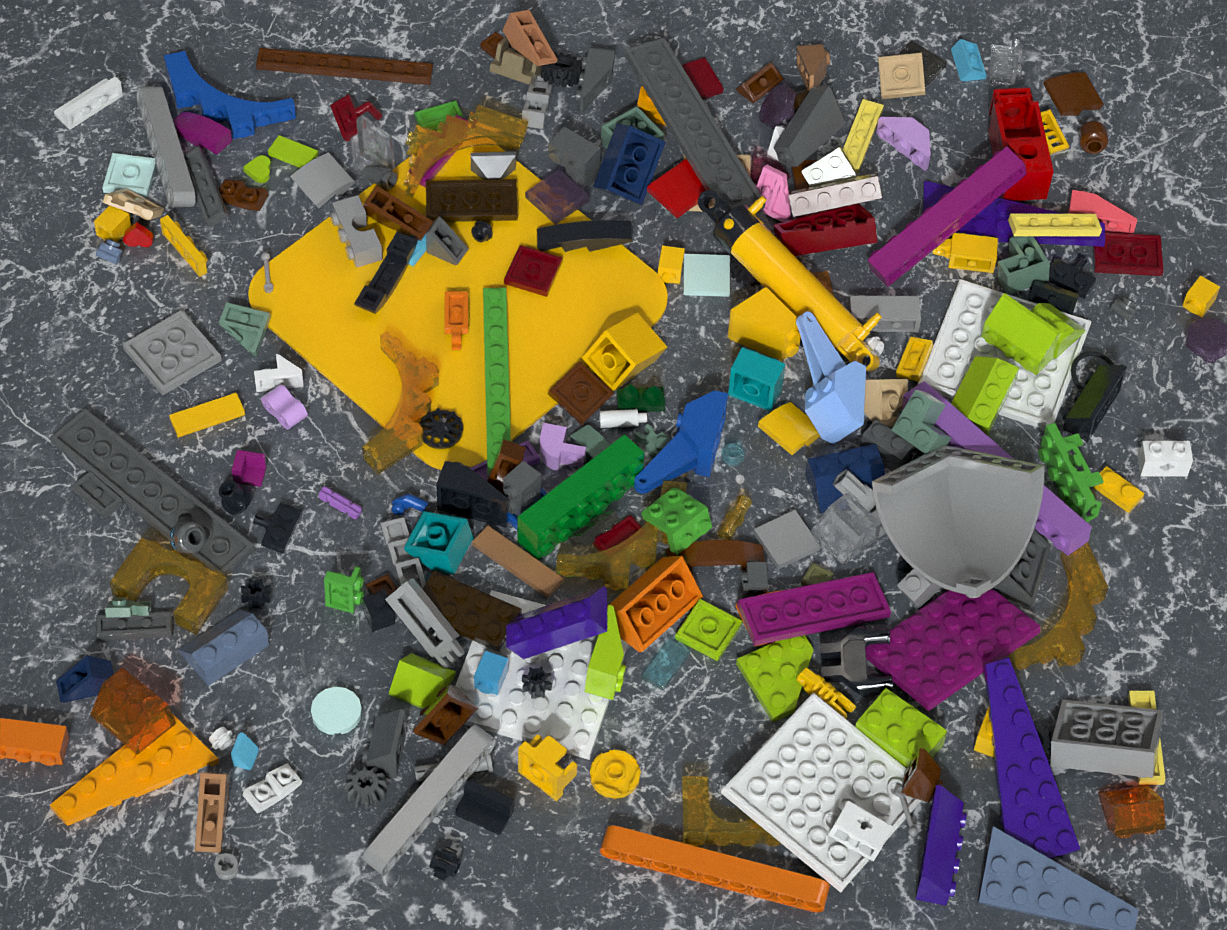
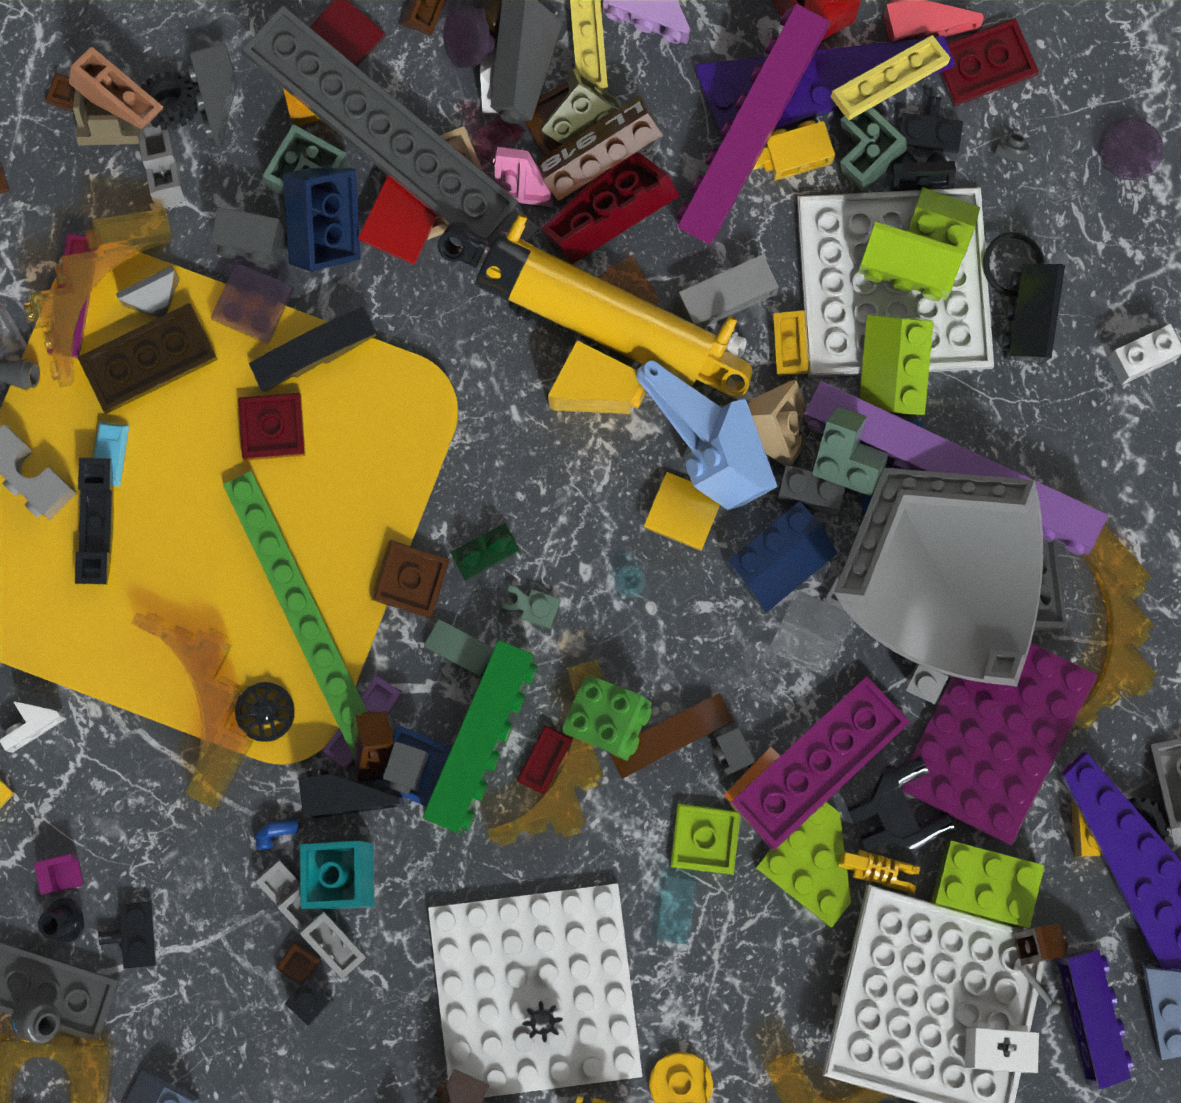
camera: 20 degrees left, 25 degrees up
(255, 594) = (147, 1052): black gear -> none
(284, 406) = (58, 766): lavender axle -> none
(340, 502) = (191, 867): medium lavender axle -> none
(344, 591) = (260, 1001): bright green bracket -> none
(396, 214) = (67, 428): reddish brown slope -> none
(419, 616) = (374, 999): light grey hinge -> none
(419, 680) = (403, 1066): lime slope -> none
(432, 116) = (44, 238): bright green tile -> none
(444, 243) = (146, 440): dark grey slope -> none
(456, 316) = (209, 542): orange plate -> none
(471, 610) = (413, 957): dark brown plate -> none
(481, 231) = (182, 399): black plate -> none
(491, 673) = (483, 1035): dark azure brick -> none
(517, 561) = (440, 850): medium nougat tile -> none
(555, 449) = (411, 676): lavender brick -> none
(558, 624) = (536, 942): dark purple slope -> none
(587, 533) = (511, 768): clear smoke plate -> none
(605, 667) = (615, 965): lime slope -> none
(621, 418) = (474, 591): white cylinder -> none
(624, 351) = (440, 499): yellow slope -> none
(655, 602) = (628, 844): orange slope -> none
(671, 264) = (437, 339): yellow brick -> none
(692, 446) = (582, 603): blue slope -> none
(706, 275) = (485, 330): light aqua tile -> none
(734, 517) = (671, 672): clear yellow pin -> none
(756, 379) = (617, 467): teal brick -> none
(786, 539) = (743, 671): light grey tile -> none
(816, 574) = (802, 709): olive tile -> none
(847, 482) = (808, 577): light grey piece -> none
(1071, 484) = (1061, 456): bright green piece -> none
(1119, 490) = (1103, 419): yellow plate -> none
(1201, 296) = (1099, 92): yellow brick -> none

